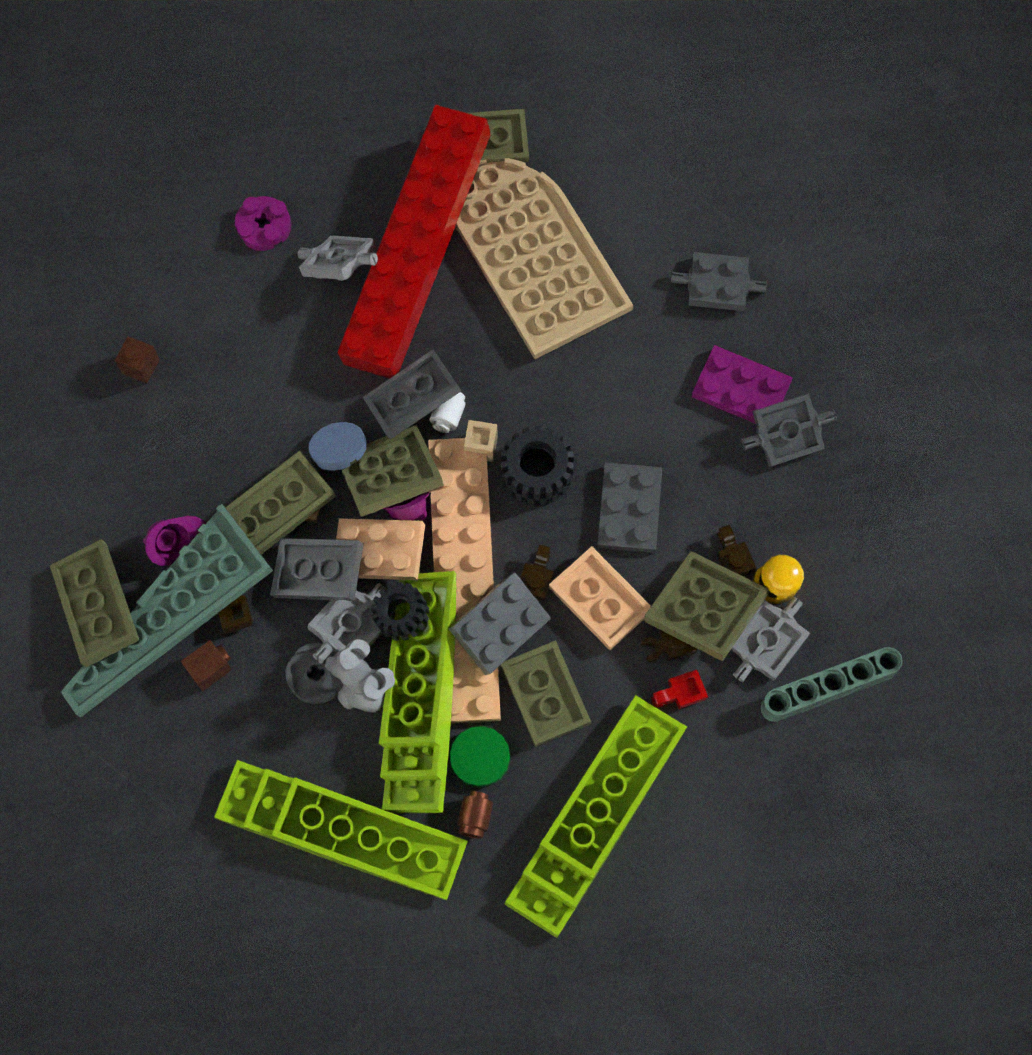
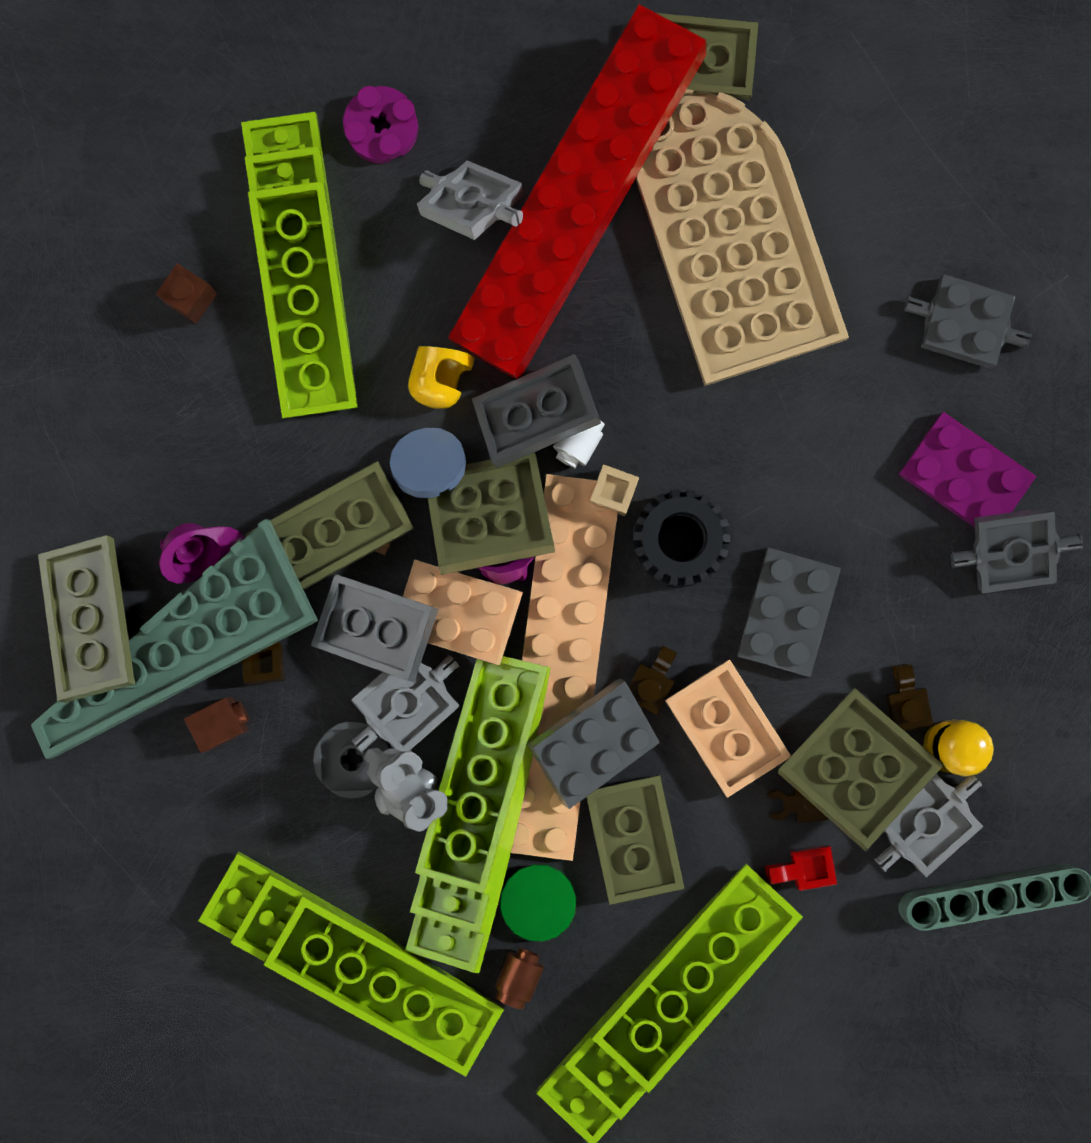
camera: 10 degrees right, 15 degrees up
(218, 328) = (299, 264): none -> lime slope
(331, 389) = (436, 377): none -> yellow helmet
(389, 601) = (454, 692): black tyre -> none

